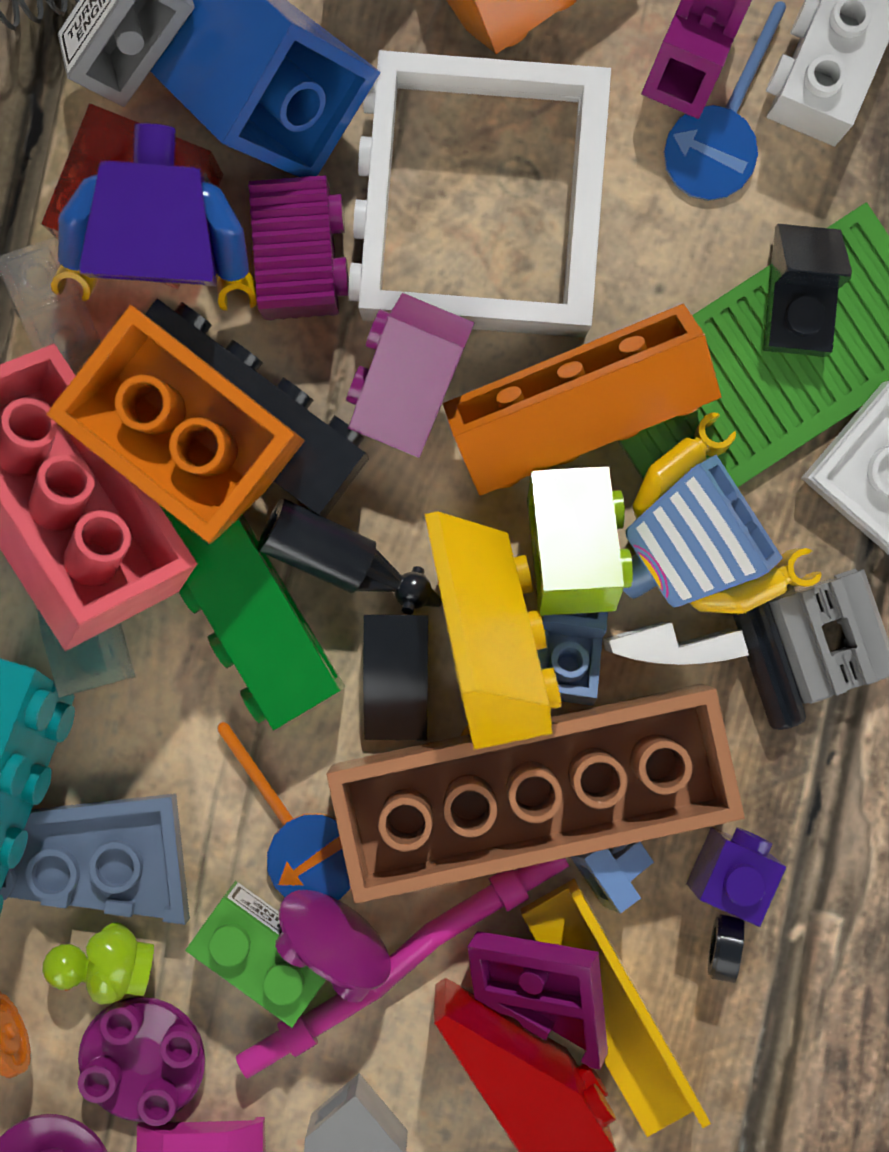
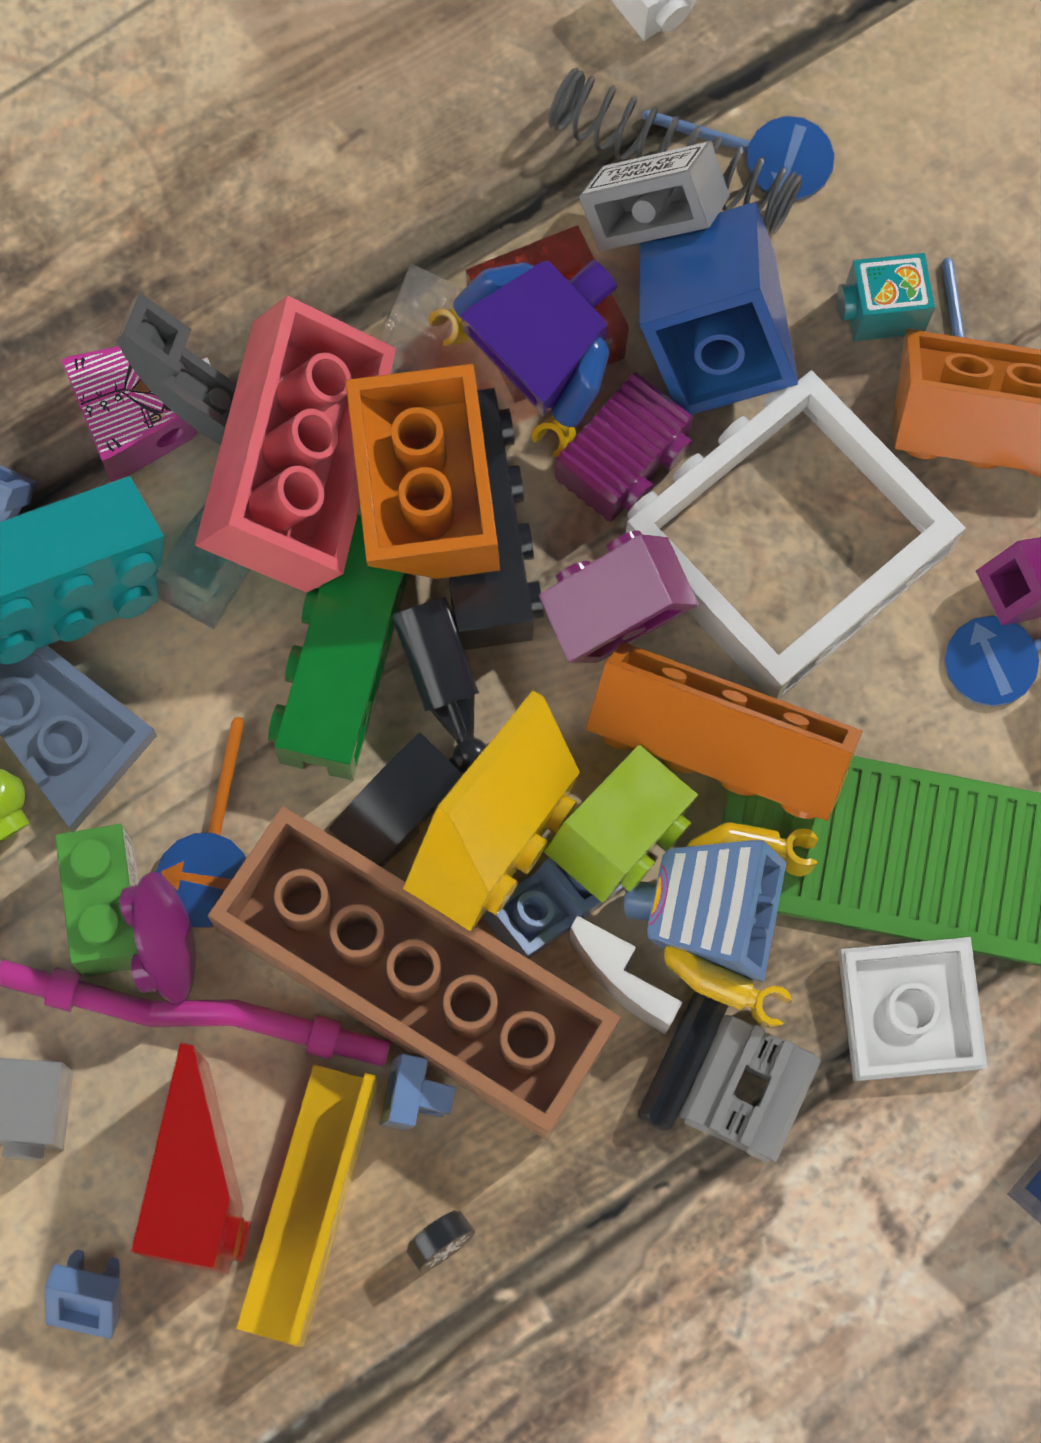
camera: 35 degrees right, 15 degrees down
(543, 989) = (275, 1130): magenta wing -> none
(736, 874) = (504, 1186): dark purple brick -> none
(803, 289) = (966, 814): black slope -> none

